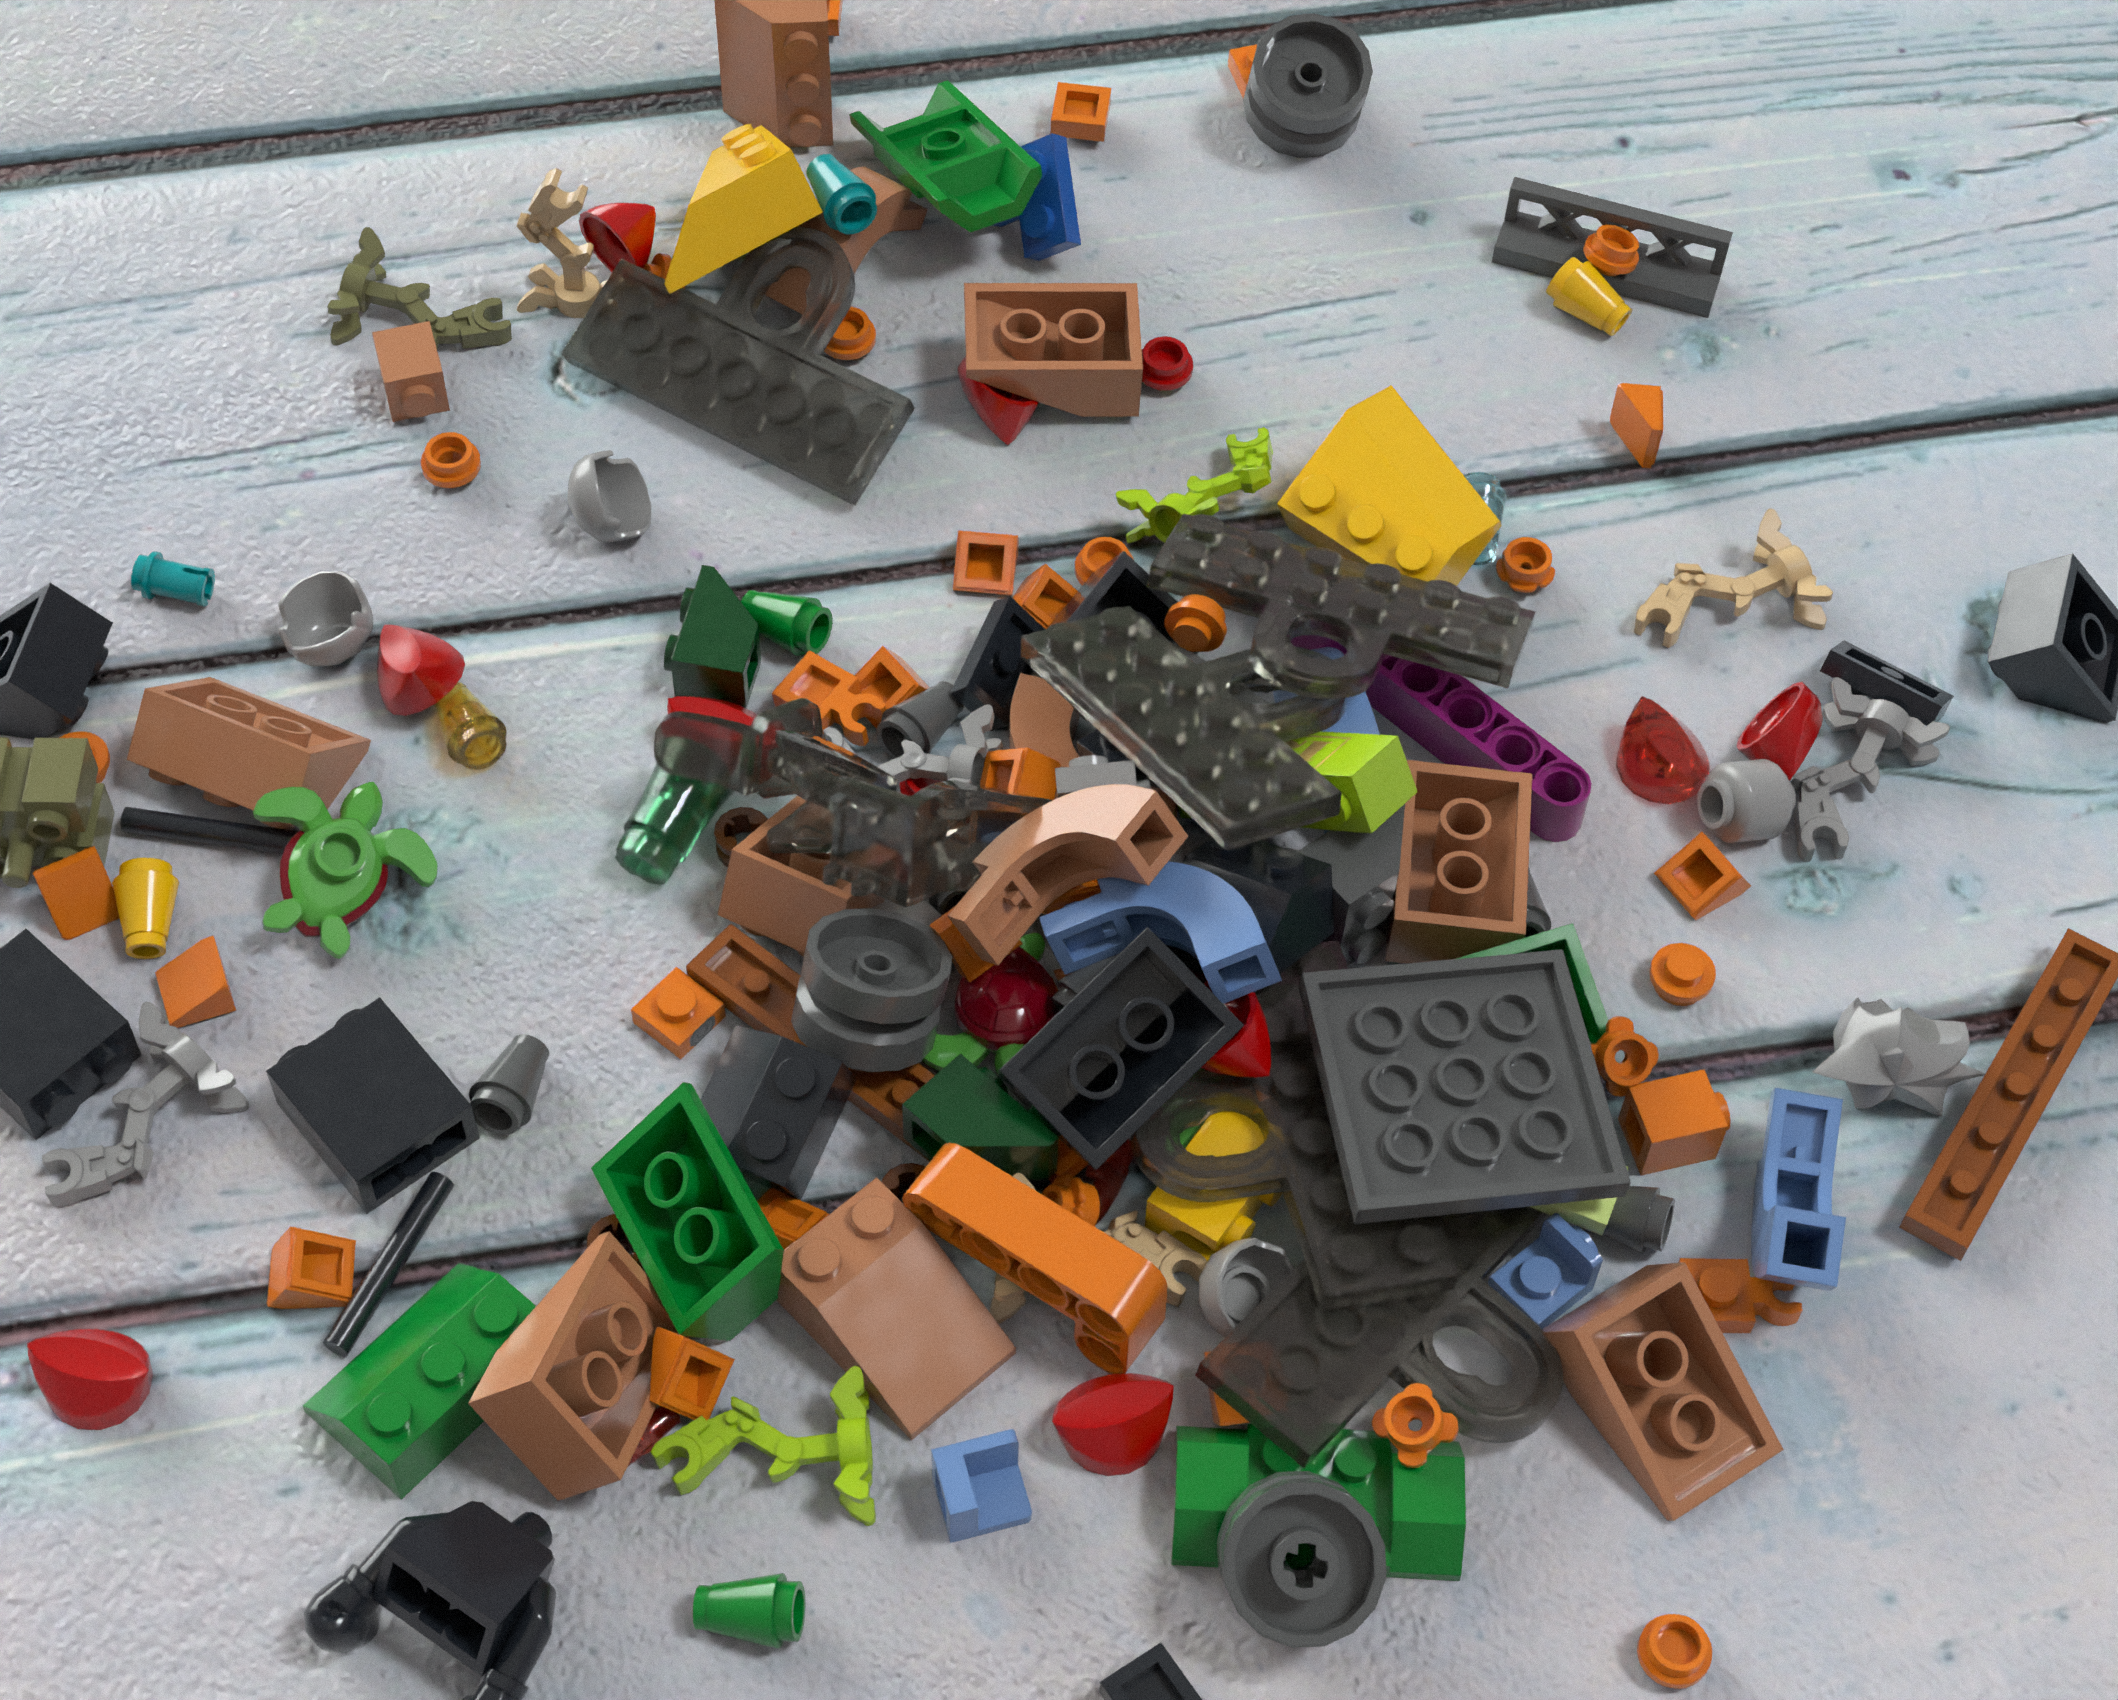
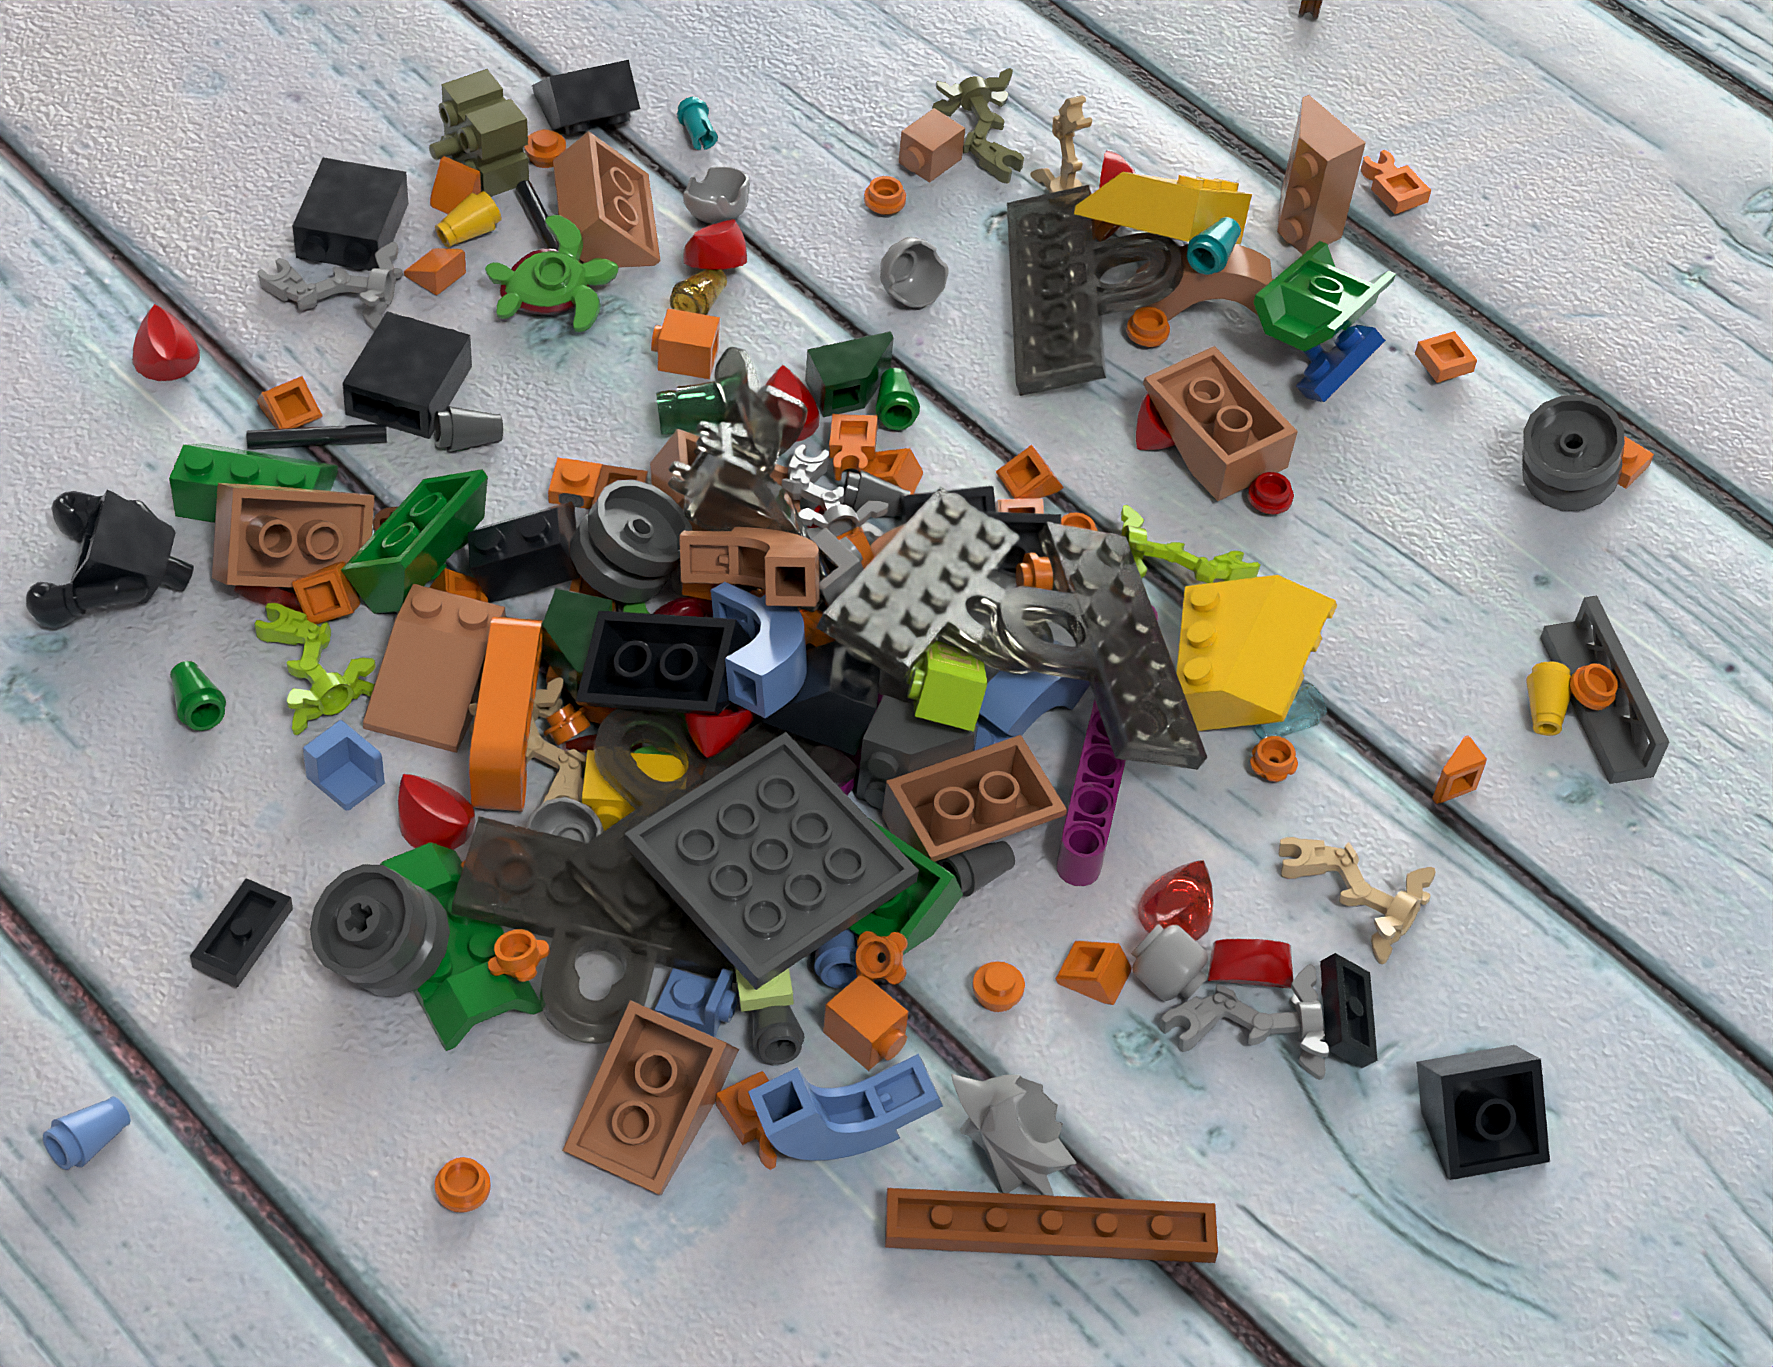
camera: 55 degrees right, 5 degrees down
(547, 778) = (687, 343): none -> orange brick

